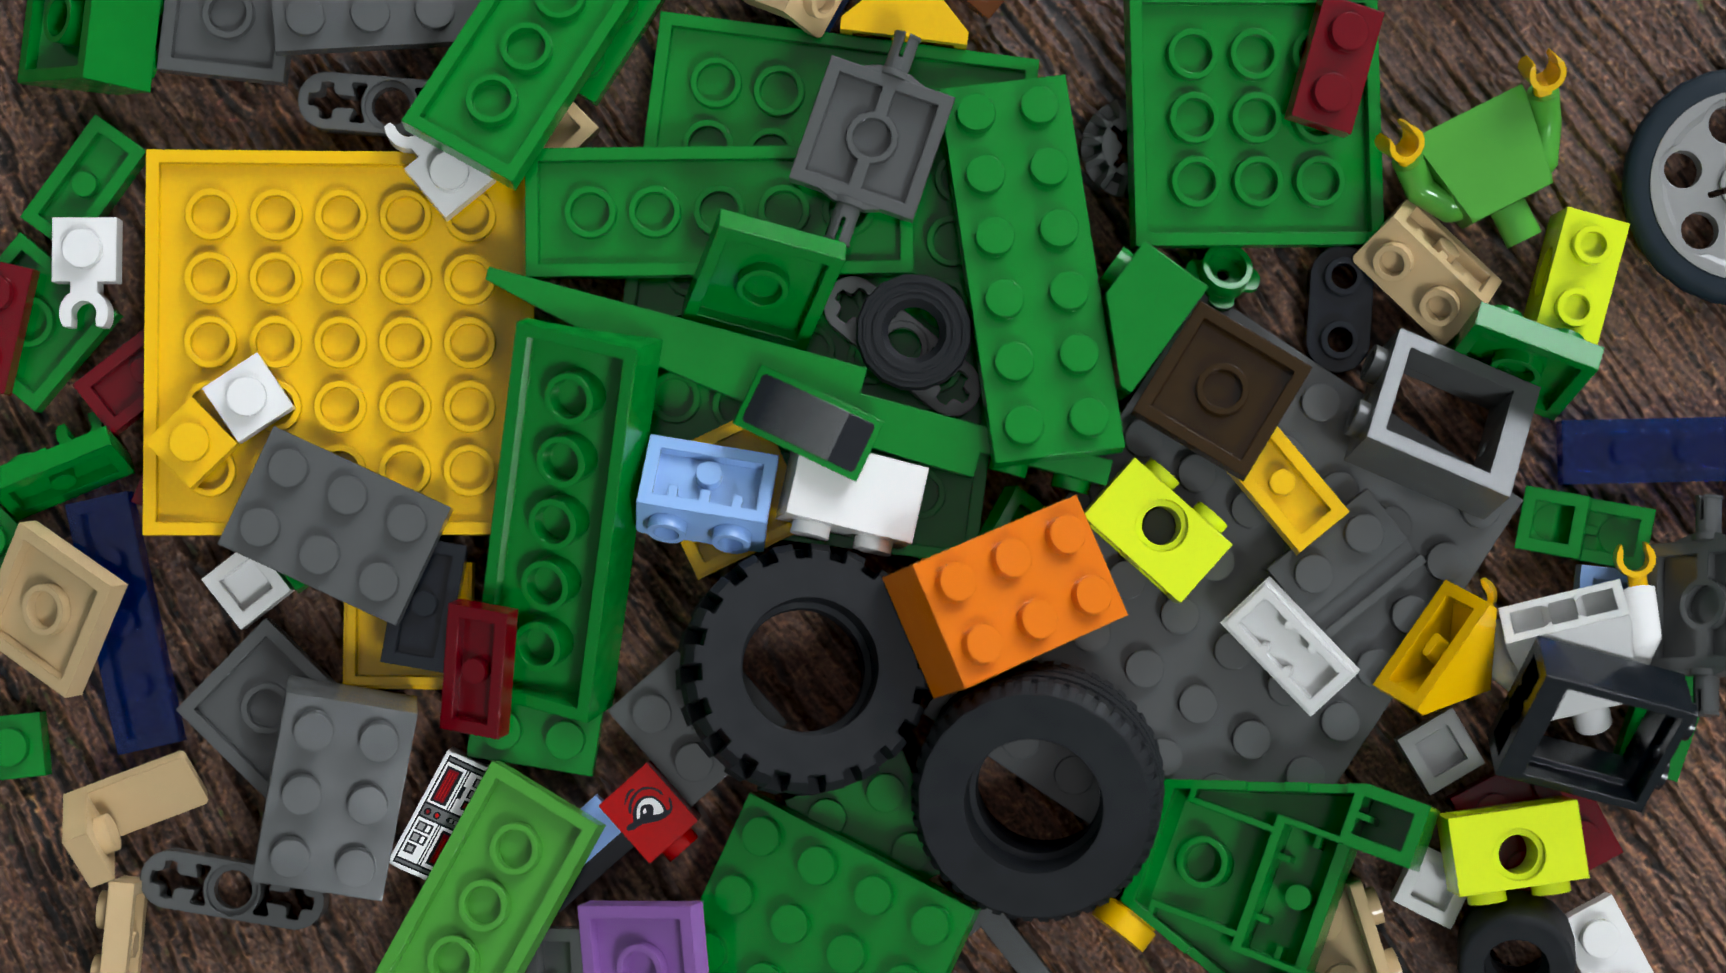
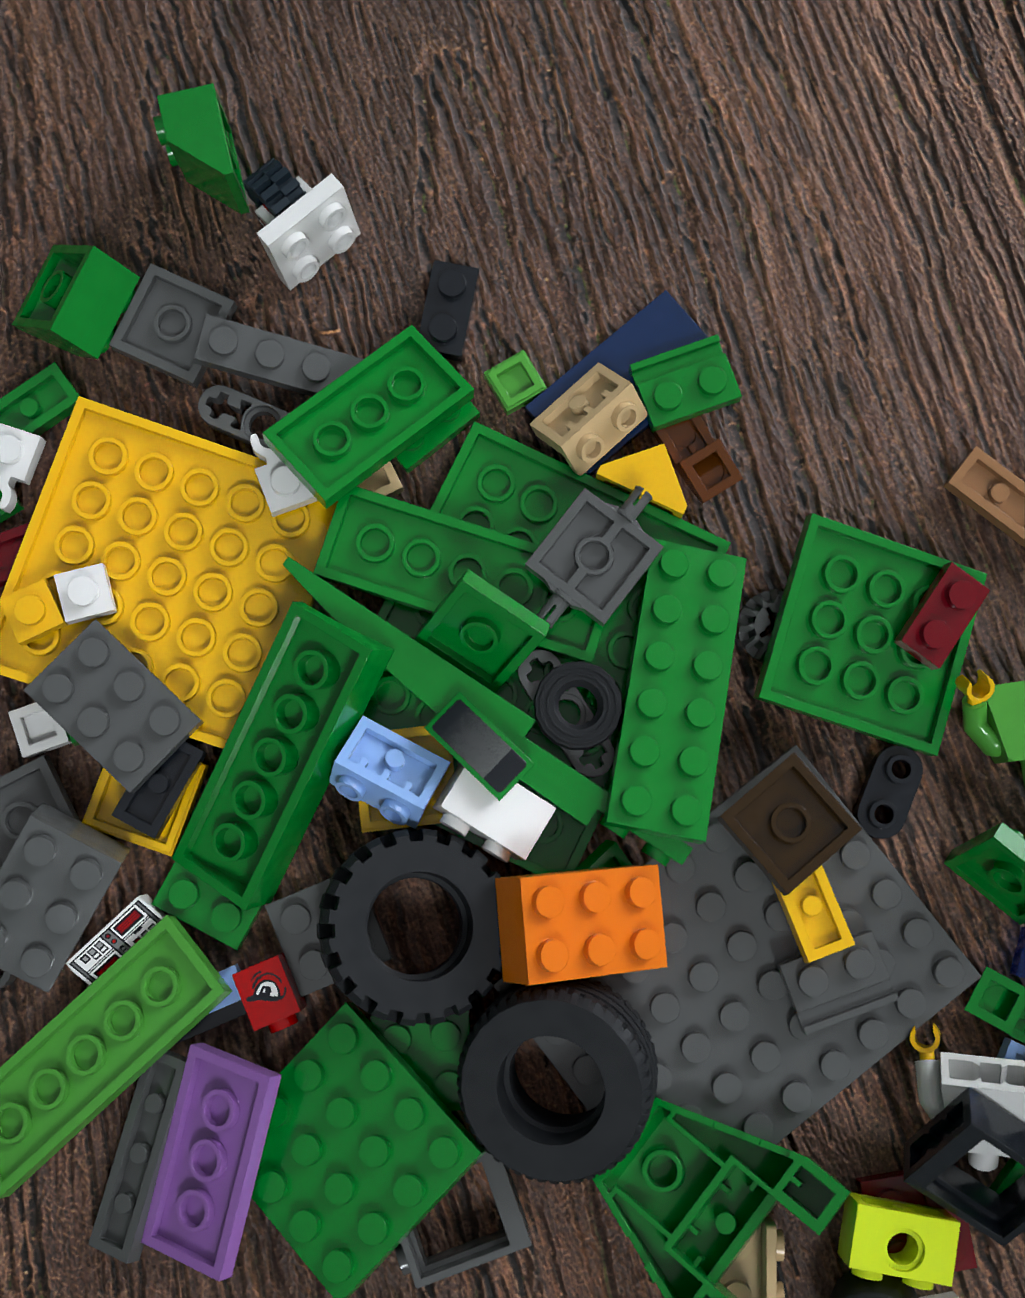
camera: 15 degrees right, 5 degrees down
(478, 668) = (180, 844): dark red plate -> none
(1118, 520) = (728, 933): neon yellow brick -> none
(1125, 923) = (591, 1198): yellow tile -> none
(1143, 310) = (751, 744): green slope -> none
(1235, 265) = (823, 735): green plate -> none
(1290, 646) = (779, 1029): white plate -> none
(1426, 271) = (962, 786): tan bracket -> none
(1427, 891) = (822, 1249): white plate -> none
(1439, 750) = (862, 1143): light grey plate -> none
(1444, 653) = (890, 1073): yellow slope -> none
(1466, 487) = (983, 926): dark grey window -> none

